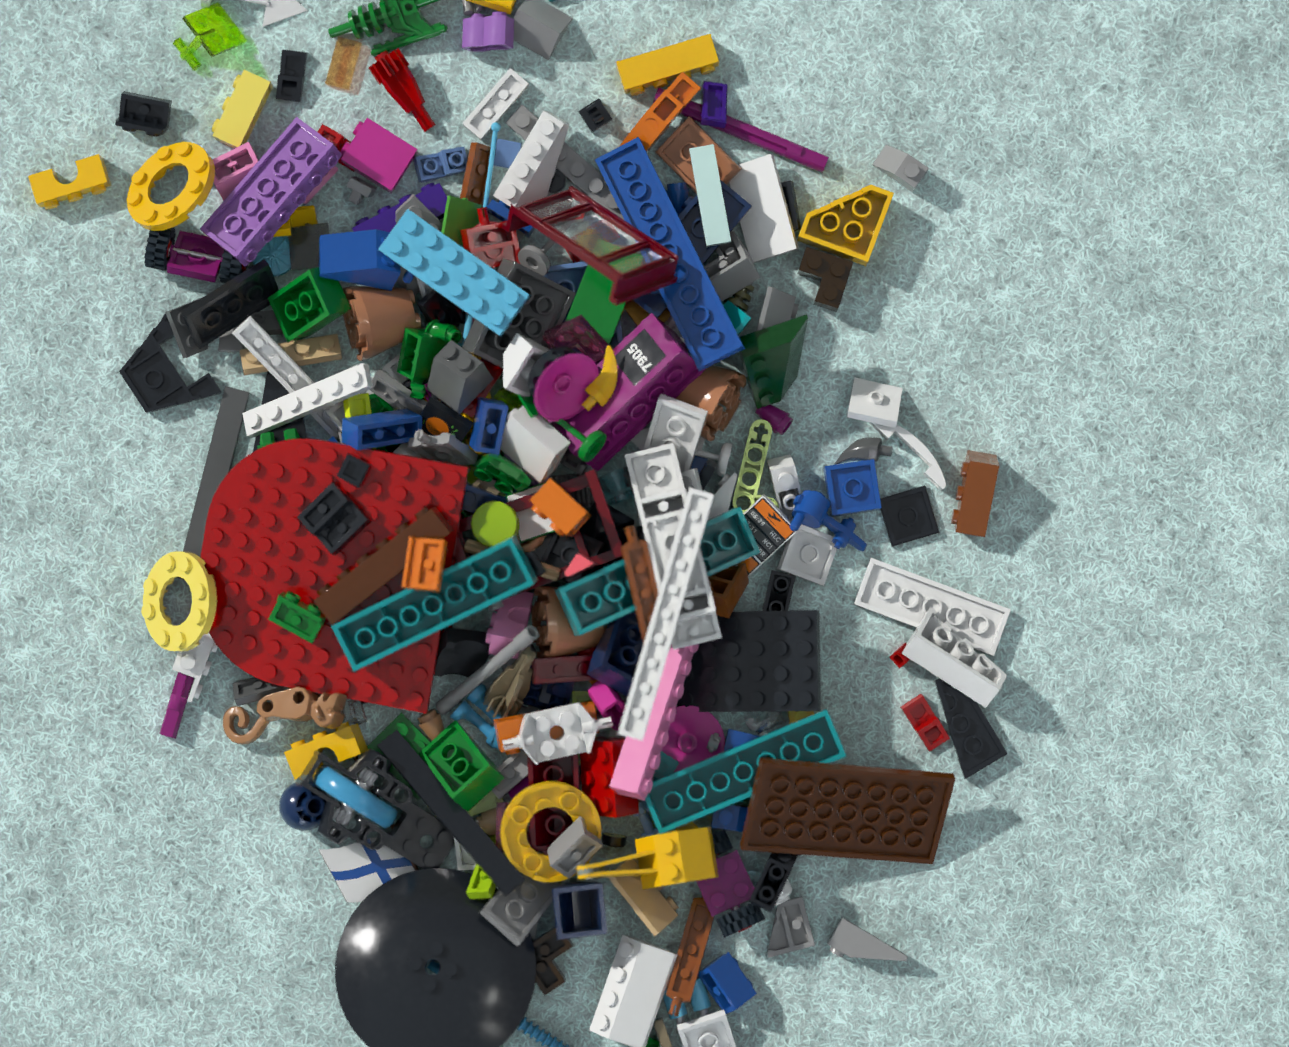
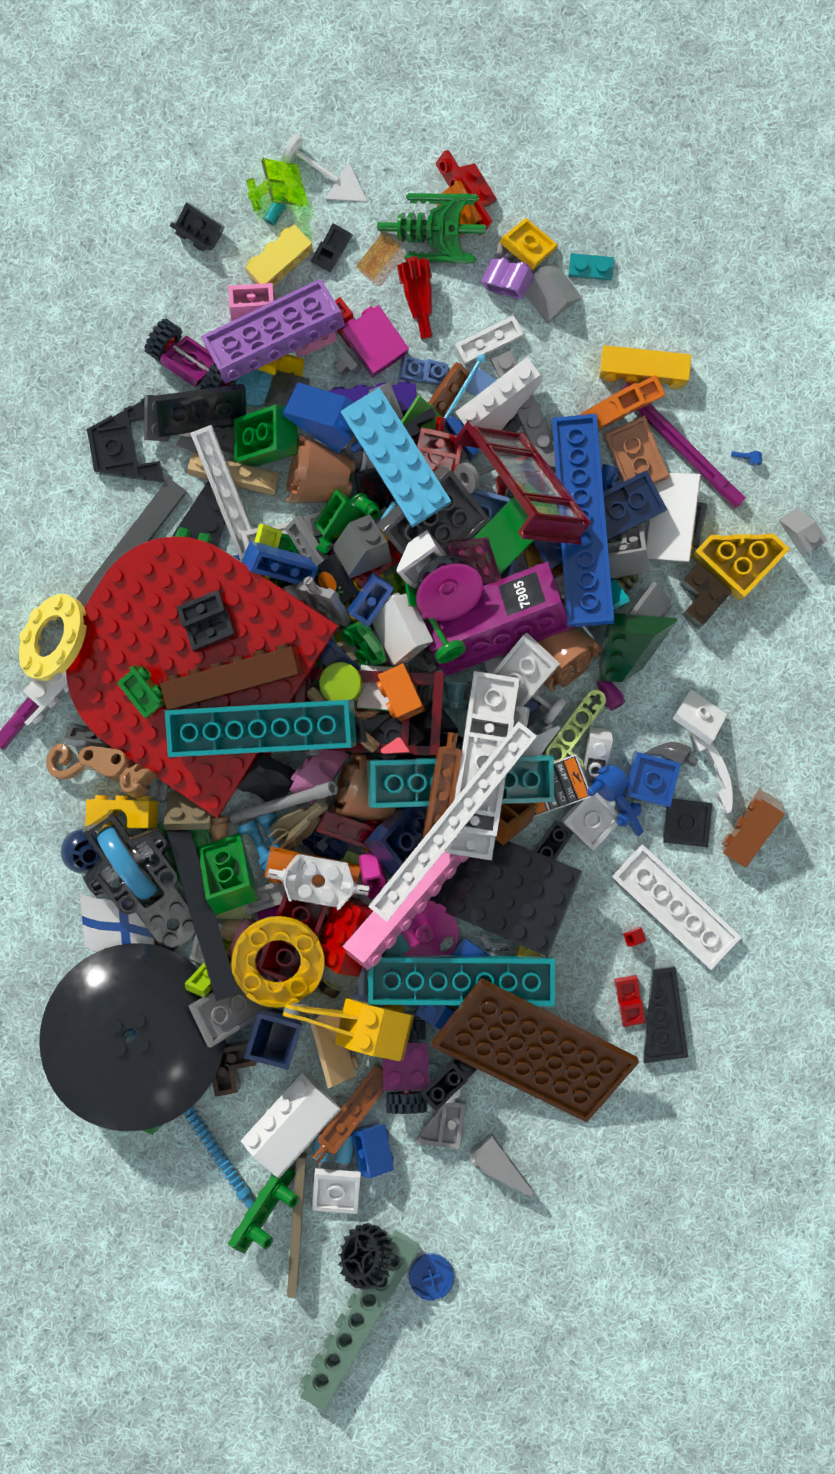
camera: 20 degrees right, 0 degrees up
(91, 178) = (132, 260): yellow arch -> none
(199, 184) = (182, 313): yellow plate -> none
(216, 65) = (274, 212): none -> teal pin
(308, 400) = (230, 515): white plate -> none
(354, 470) = (240, 587): black tile -> none
(391, 723) = (185, 814): none -> dark tan plate
(424, 564) = (264, 691): orange plate -> none
(456, 233) = (422, 419): none -> black slope
(573, 848) = (290, 984): light grey panel -> none
(595, 115) = (566, 384): black tile -> none
(604, 385) = (481, 605): yellow bar -> none
(710, 195) = (636, 486): light aqua tile -> none
(714, 104) = (669, 414): dark purple tile -> none
(820, 110) = (755, 457): none -> blue hand
(954, 659) = (677, 960): white wedge -> none

